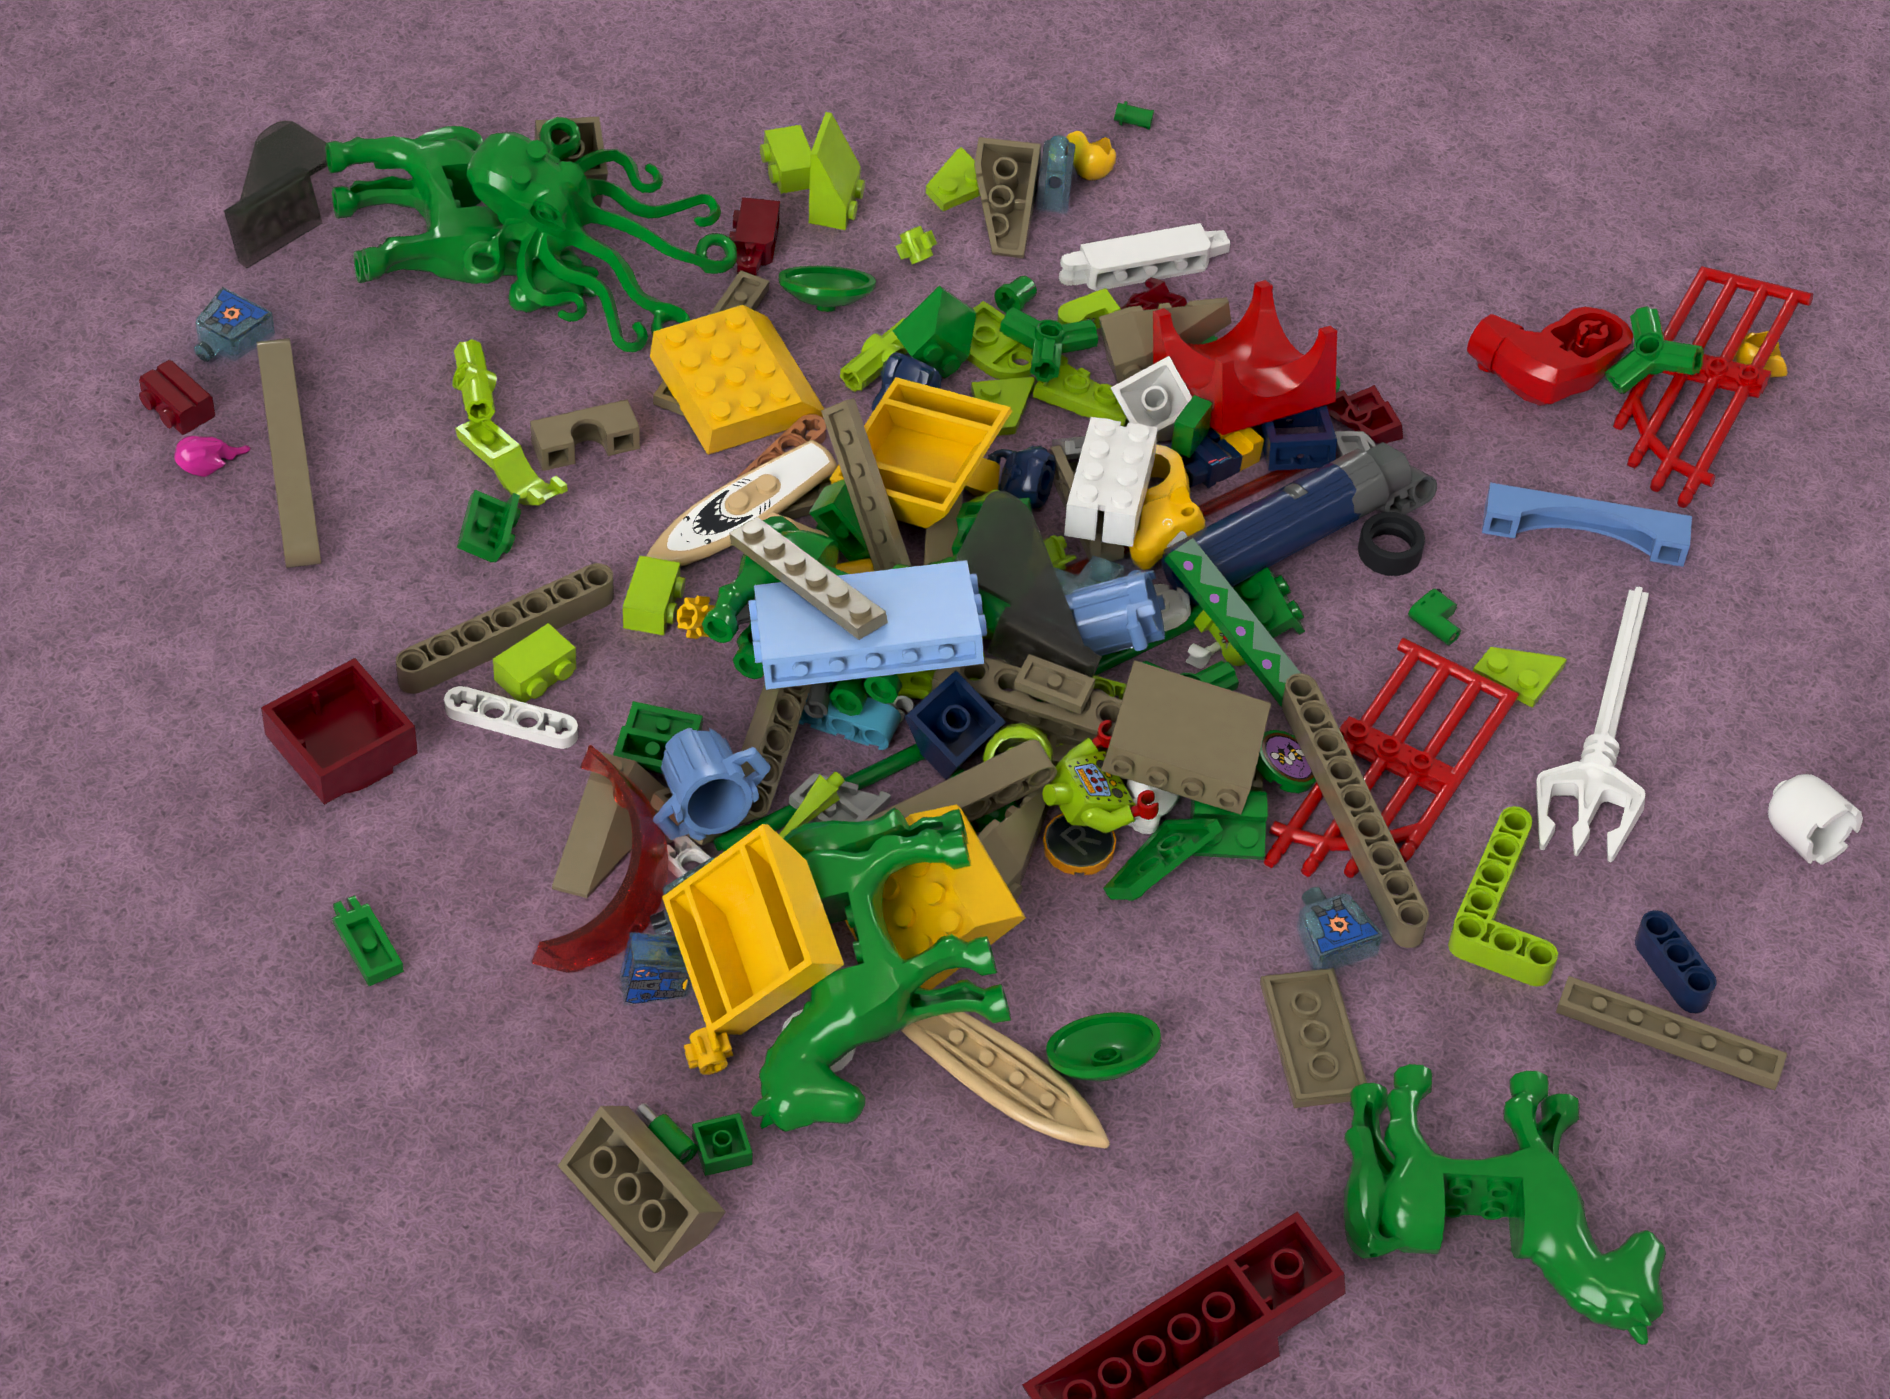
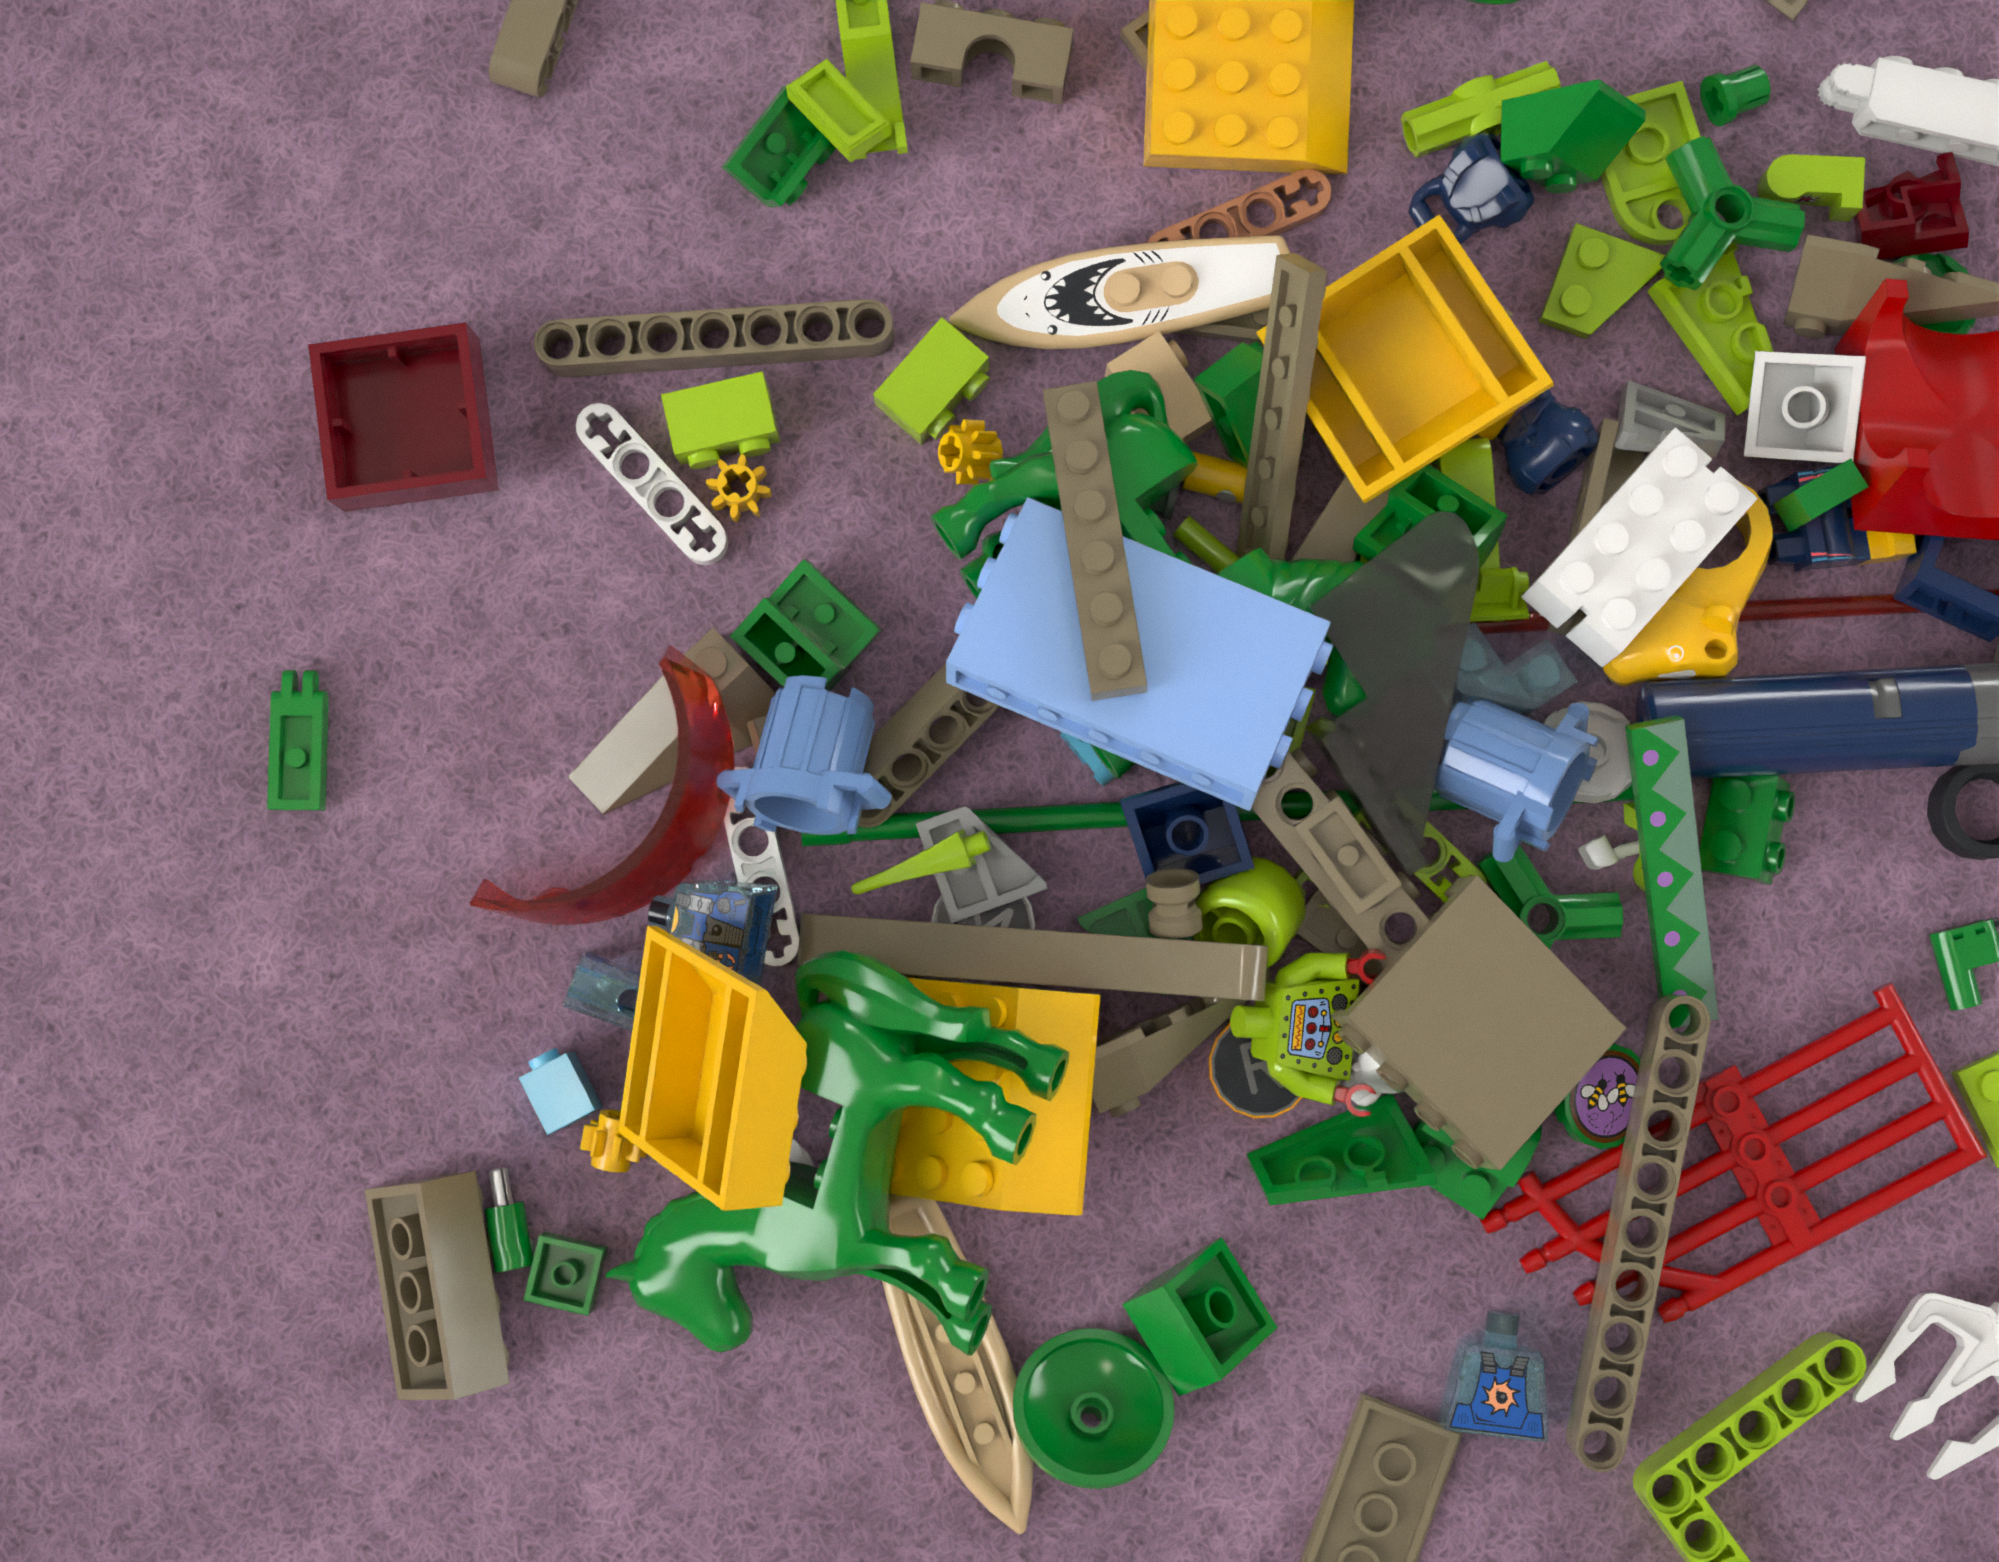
camera: 35 degrees right, 35 degrees up
(514, 484) = (838, 110): none -> lime tile
(568, 692) = (733, 500): none -> yellow gear
(655, 1043) = (559, 1090): none -> medium azure brick
(969, 749) = (1174, 905): none -> dark tan wheel
(1132, 980) = (1200, 1318): none -> green slope

